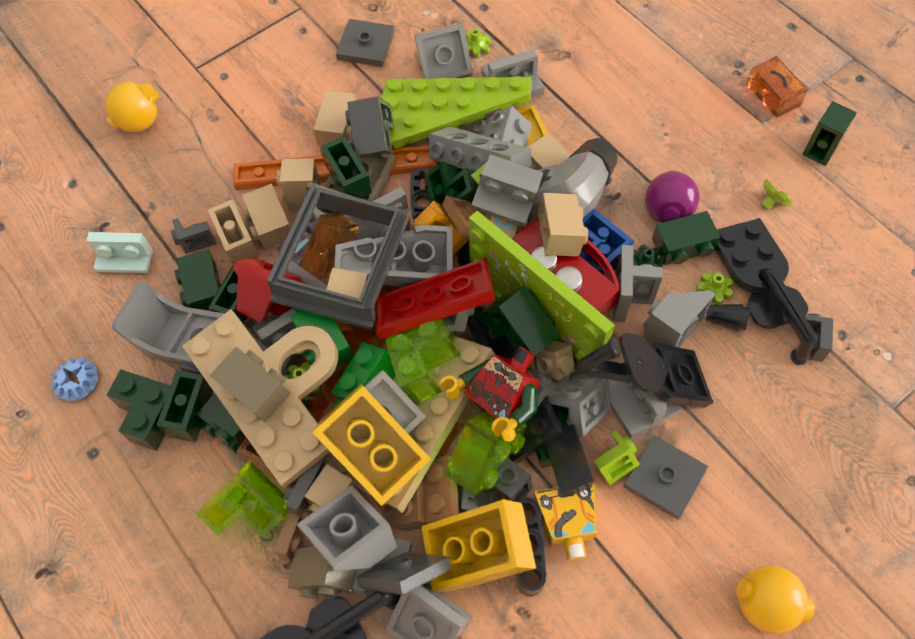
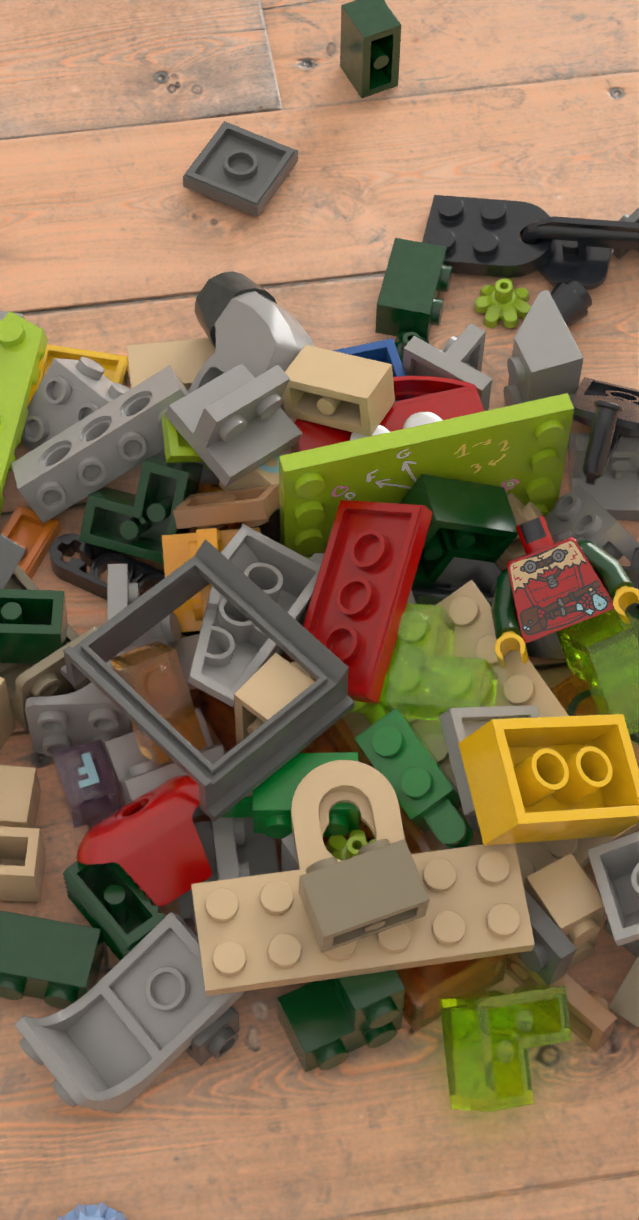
camera: 65 degrees left, 5 degrees down
(144, 403) = (231, 1125): dark green brick -> none
(184, 400) = (275, 1067): dark green brick -> none
(671, 196) = (339, 266): magenta brick -> none
(704, 125) = (240, 169): none -> dark grey plate
(774, 196) = (413, 160): lime plant -> none
(776, 86) = (241, 56): clear orange brick -> none

